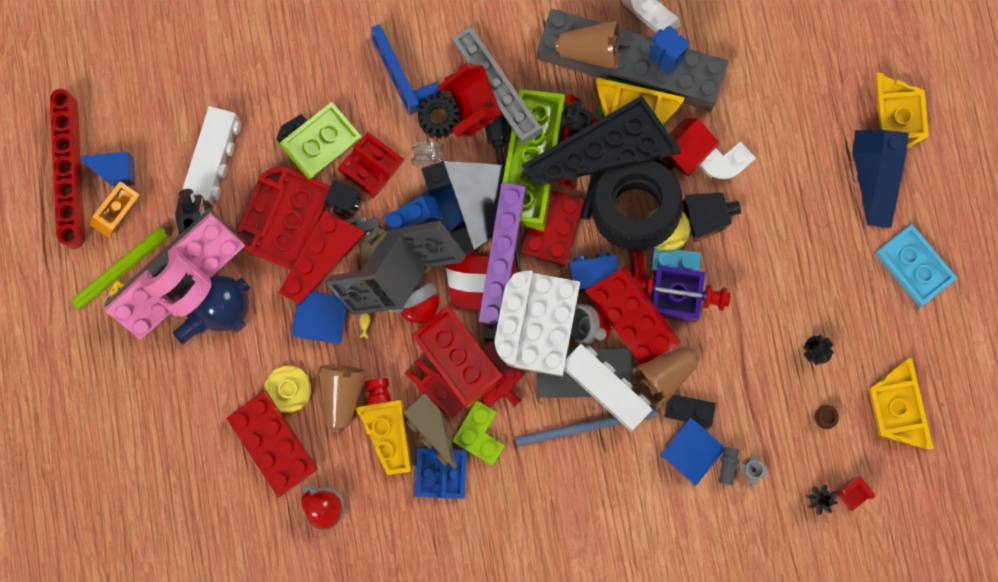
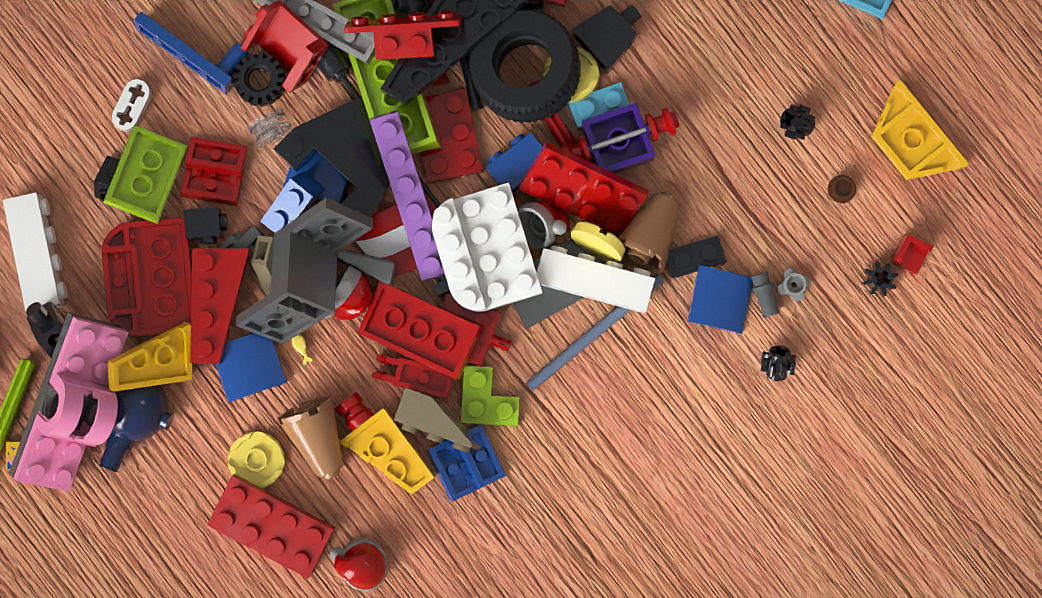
camera: 30 degrees left, 5 degrees up
(251, 277) = (154, 362): none -> yellow wing
(335, 83) = (125, 102): none -> white beam
(451, 295) = (376, 267): none -> dark grey slope
(558, 135) = (403, 36): none -> red bracket
(621, 360) = (597, 244): none -> light yellow tile
(712, 522) = (778, 363): none -> black gear

